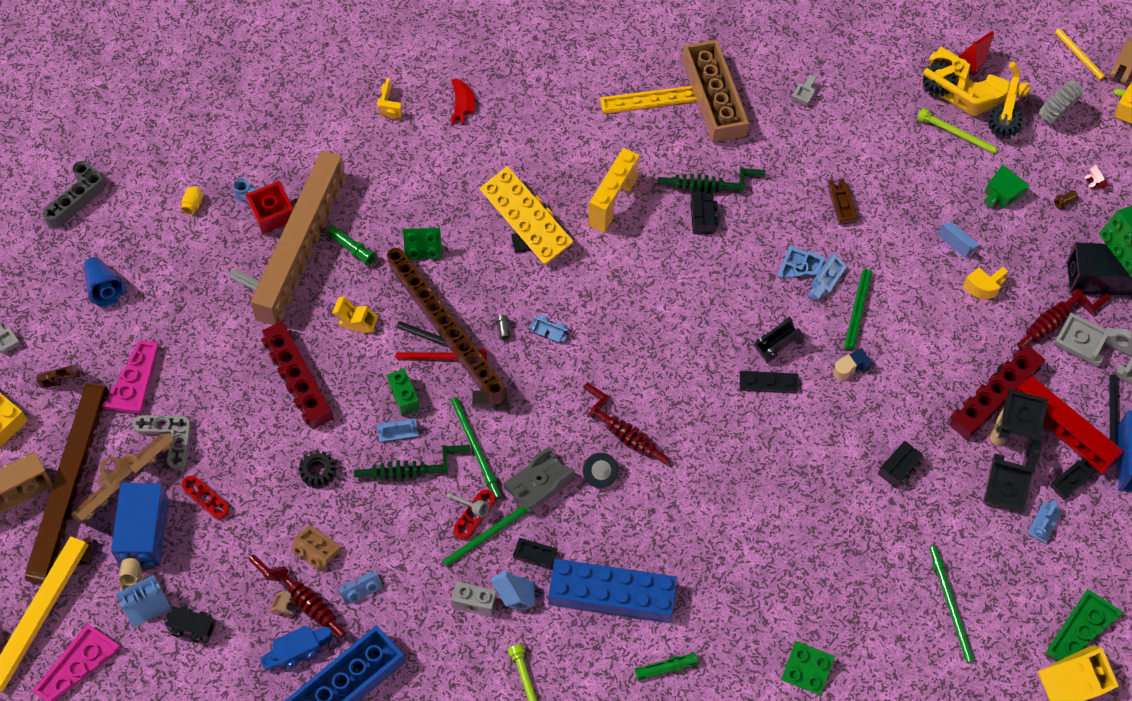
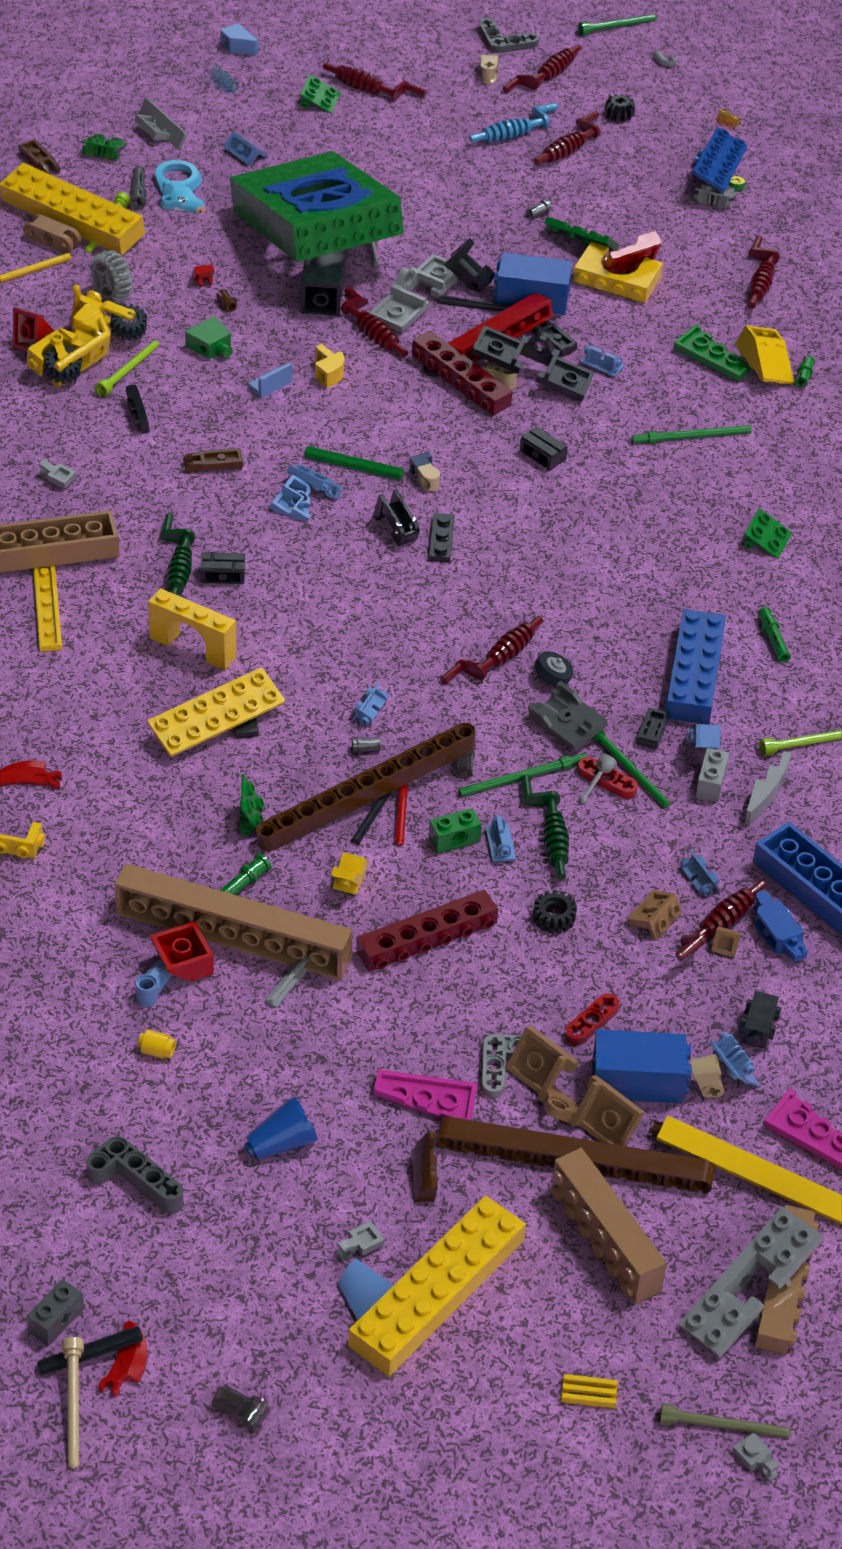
camera: 90 degrees left, 15 degrees down
(454, 643) = (766, 790): none -> light grey slope
(898, 141) = (136, 406): none -> black hinge

